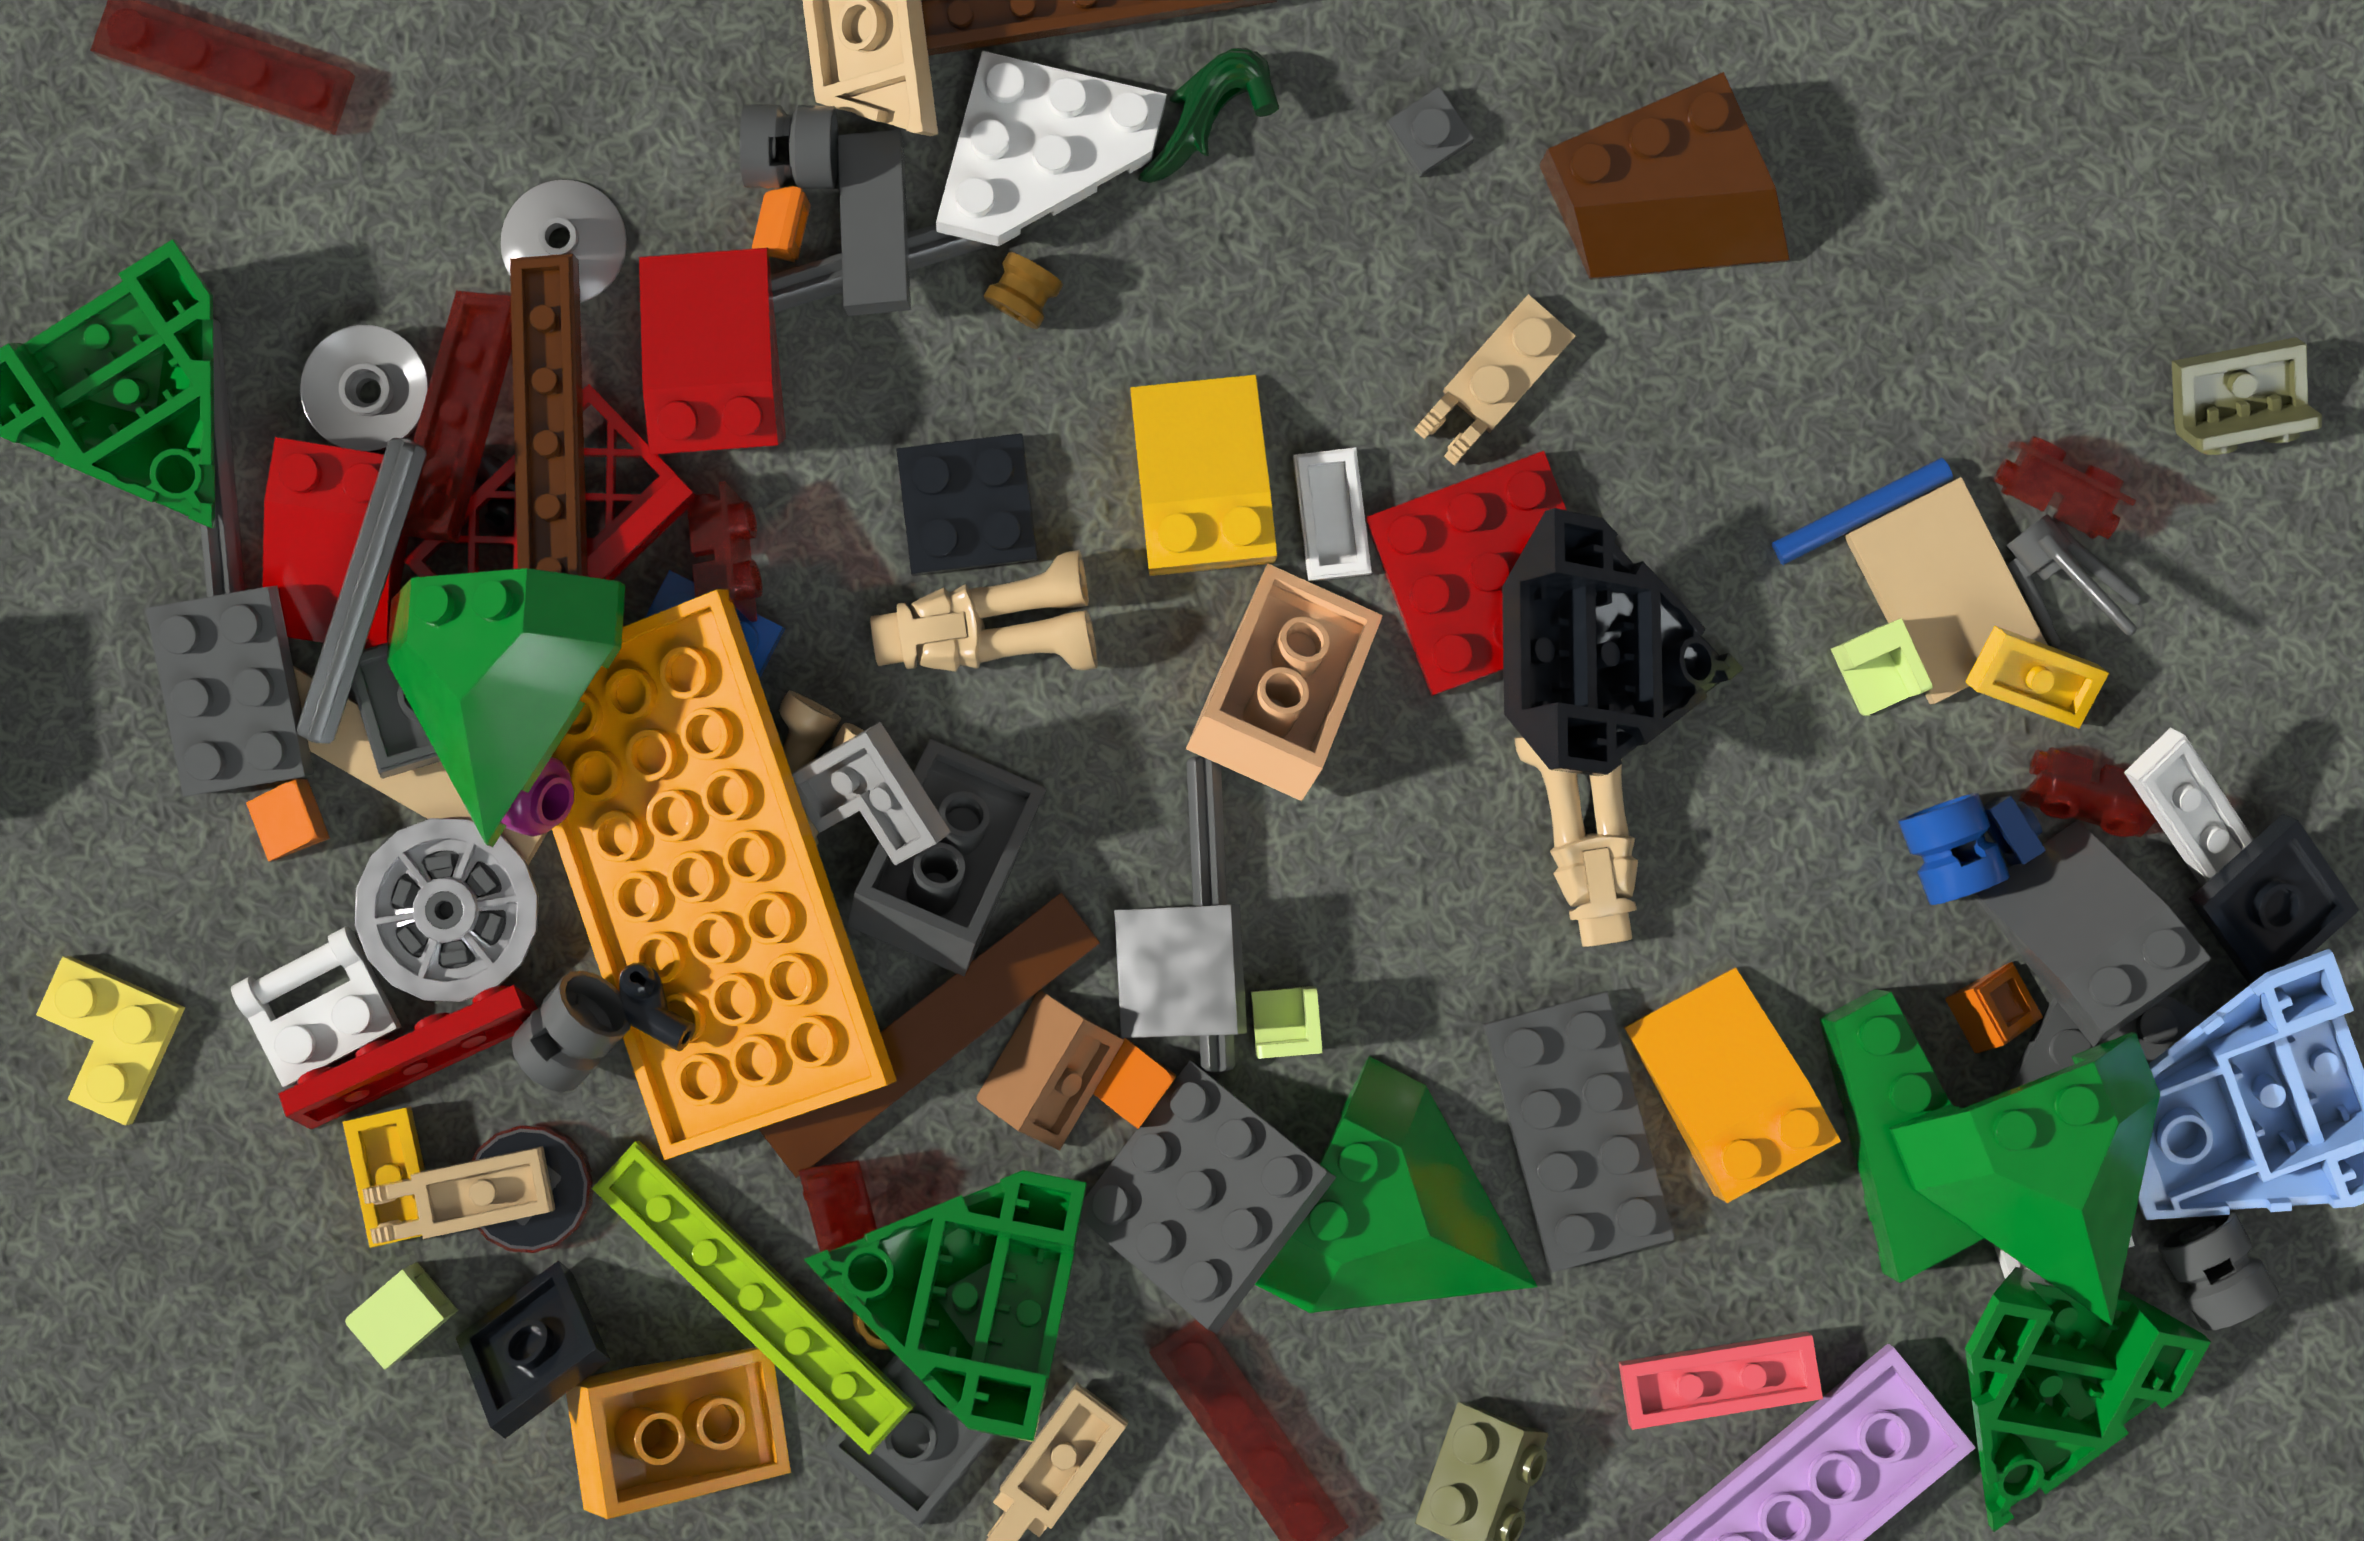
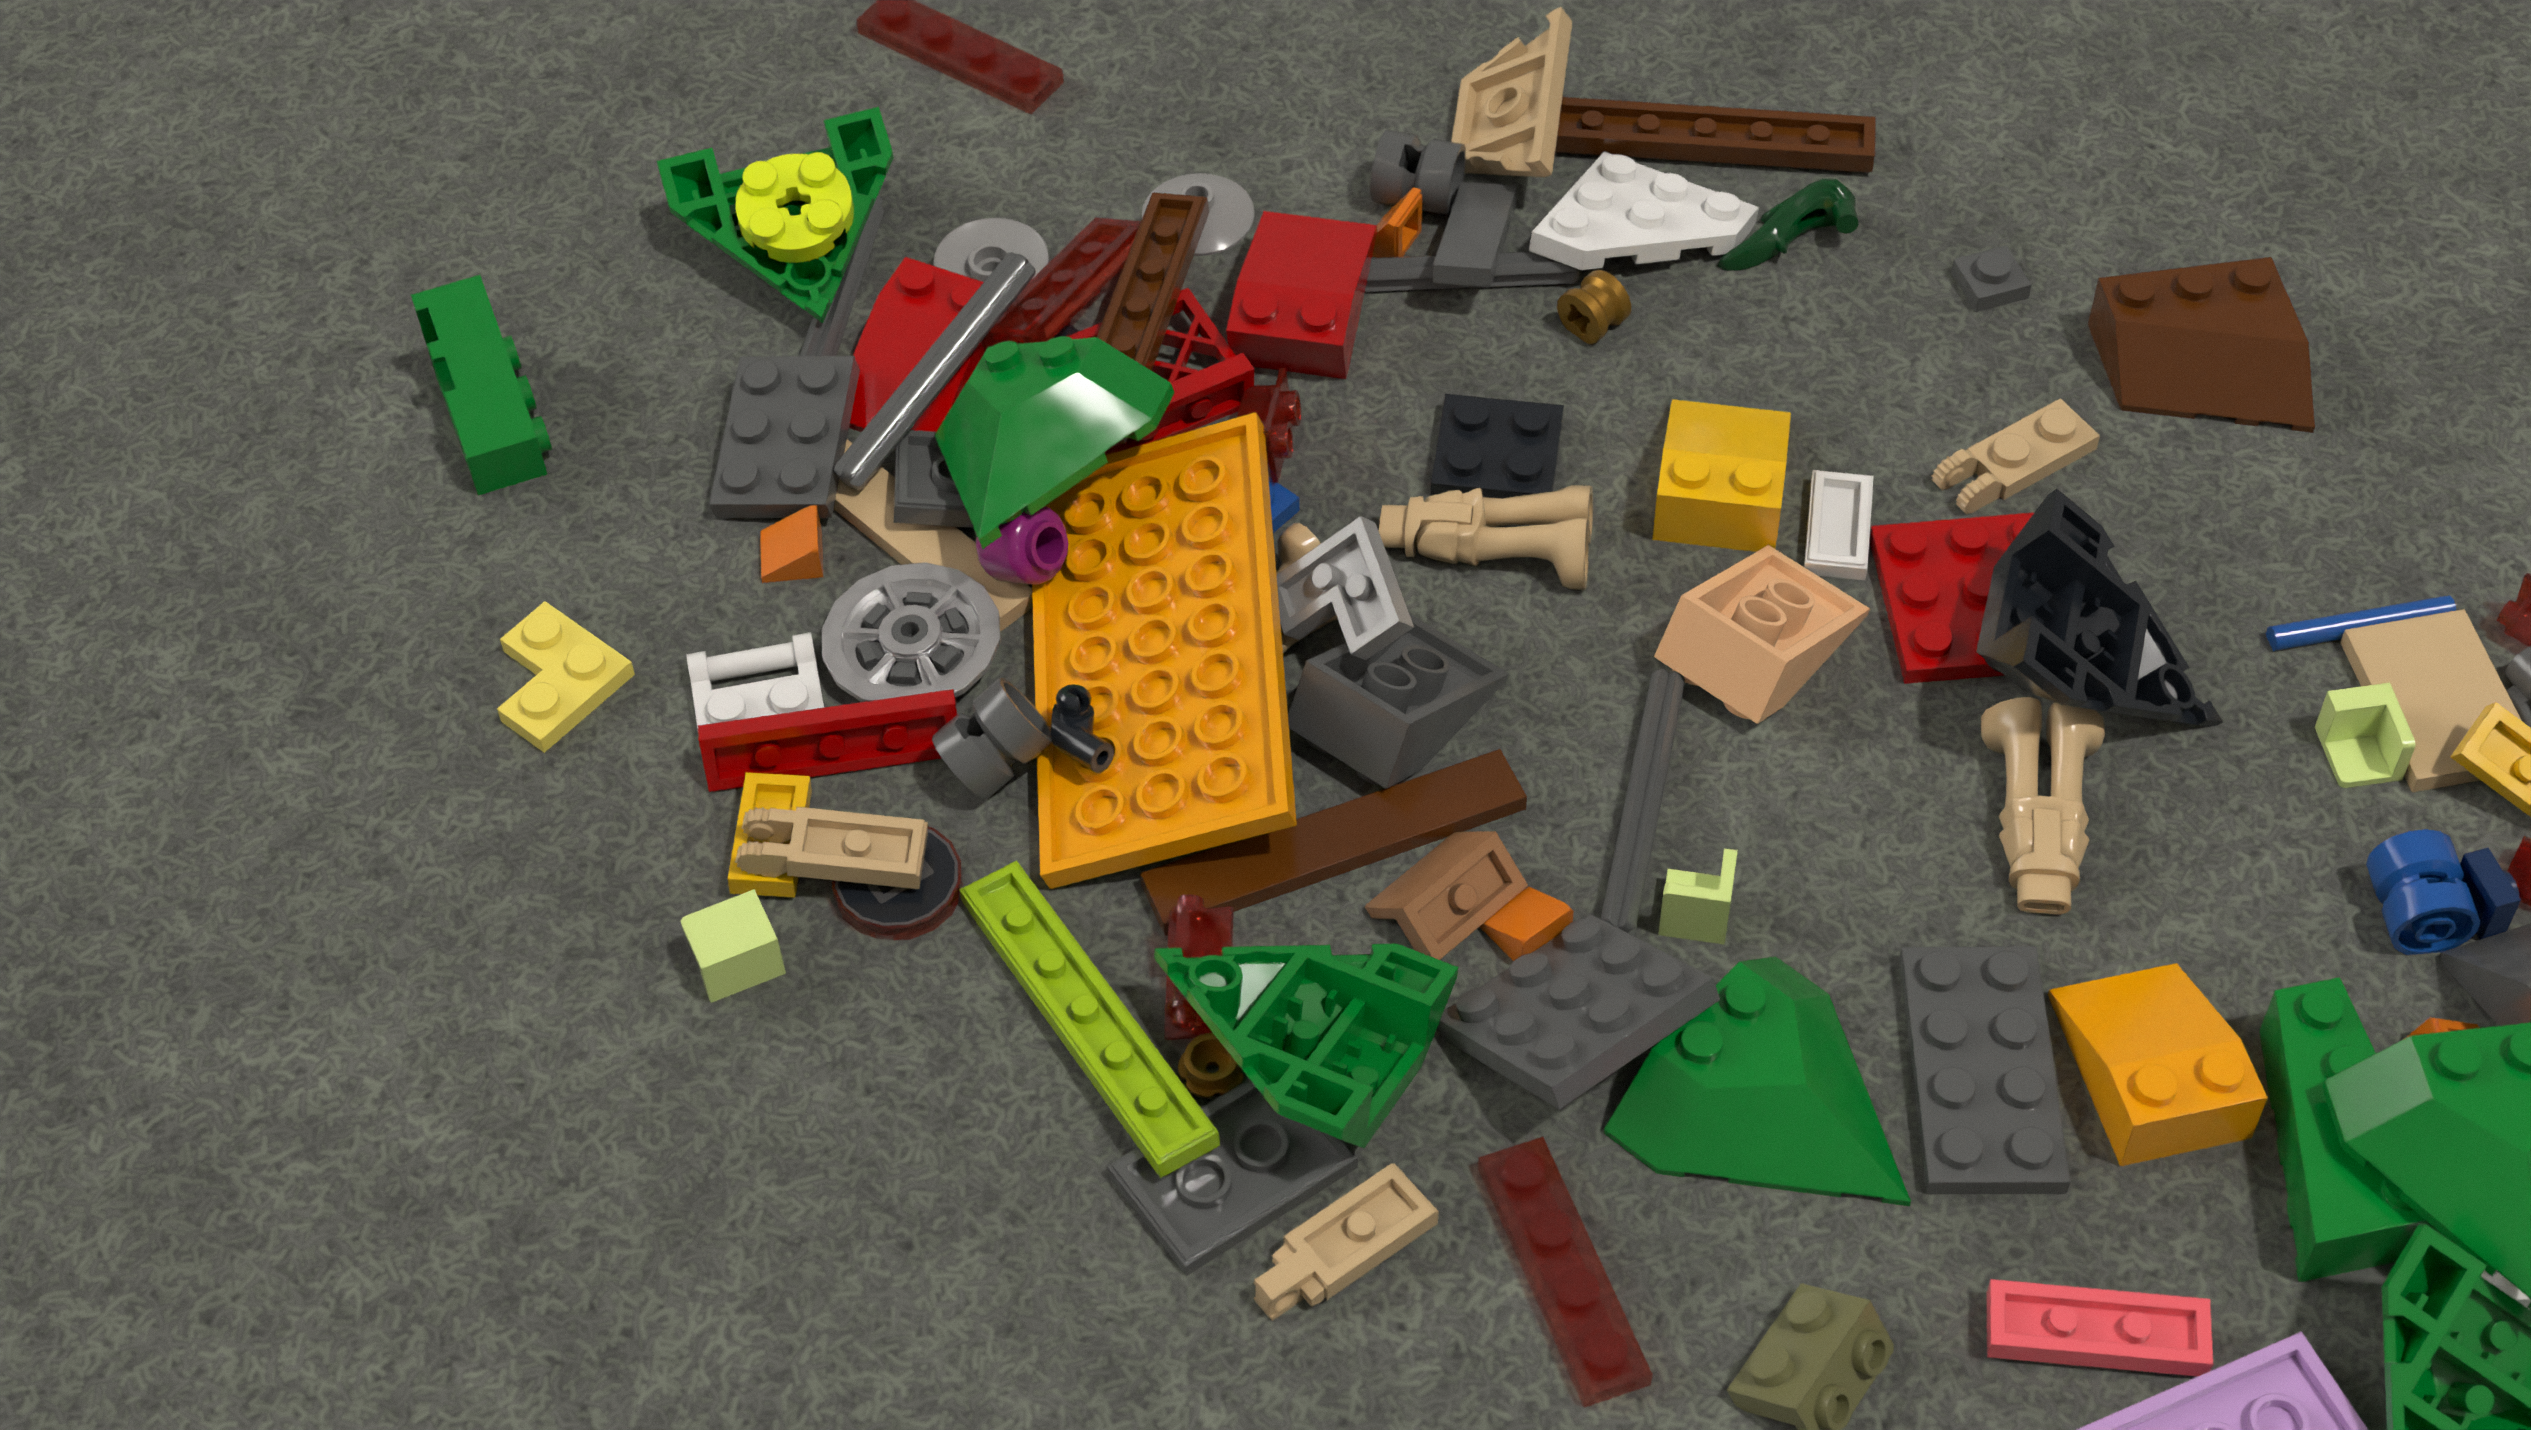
camera: 20 degrees right, 35 degrees down
(92, 398) = (791, 178): none -> neon yellow plate
(532, 1349) = (833, 997): black plate -> none
(676, 1430) = (964, 1107): light orange slope -> none
(1180, 971) = (1601, 828): tile -> none

